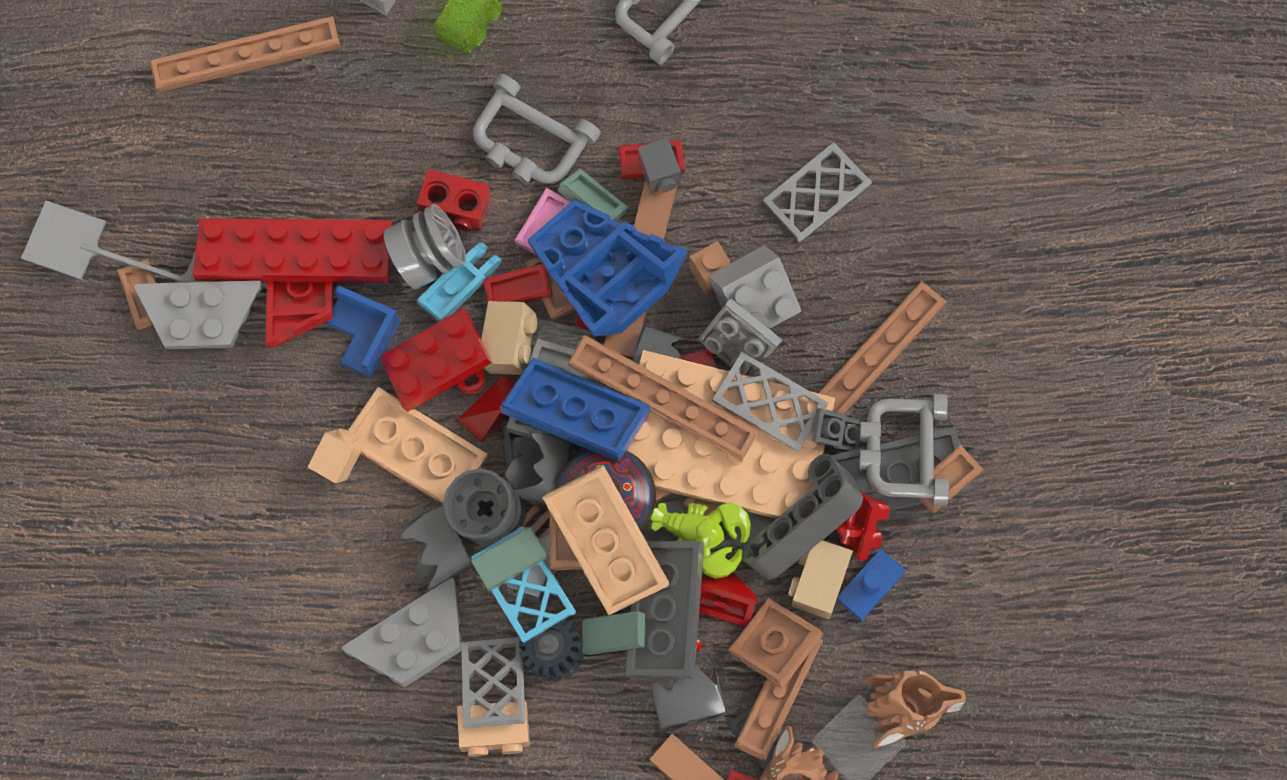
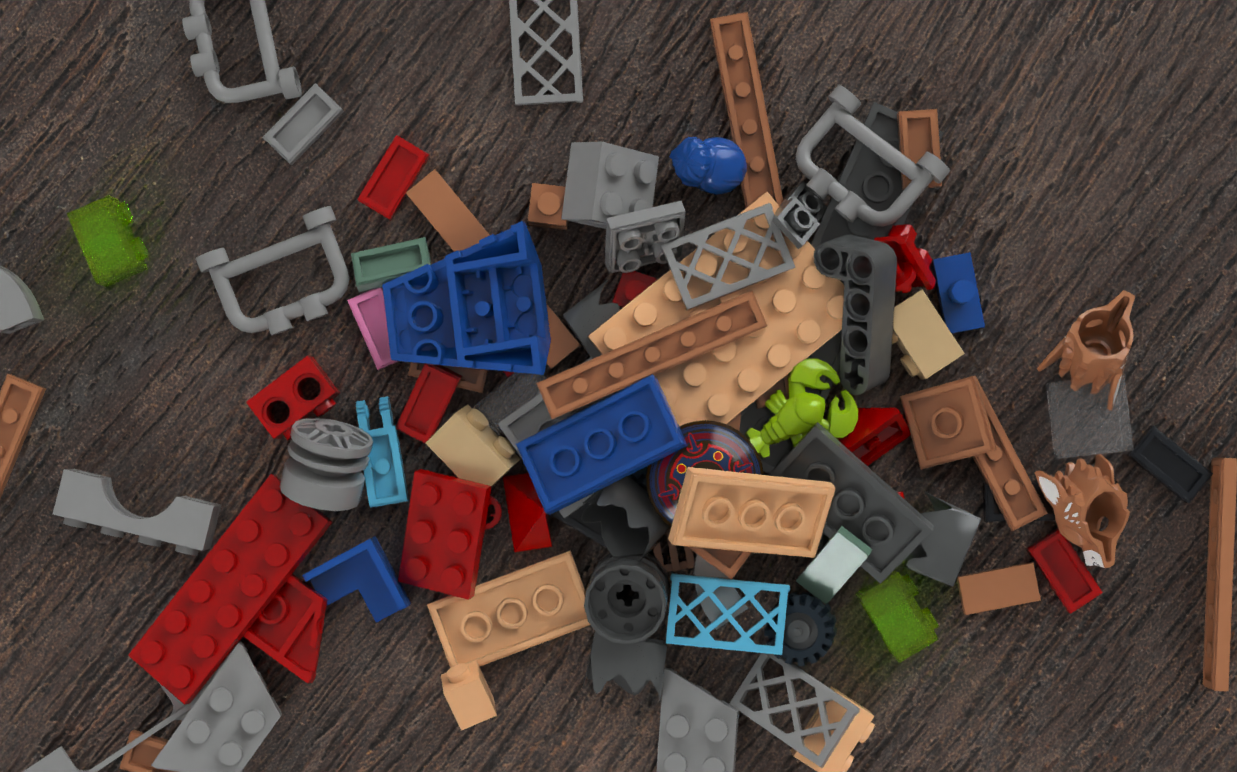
camera: 50 degrees left, 15 degrees up
(289, 124) = (91, 499): none -> light grey arch
(509, 559) = (696, 611): sand green tile -> none
(612, 710) = (898, 616): none -> clear neon green brick
(641, 79) = (303, 124): none -> light grey tile
(659, 166) = (412, 178): dark grey brick -> none
(824, 350) = (710, 164): none -> blue hair

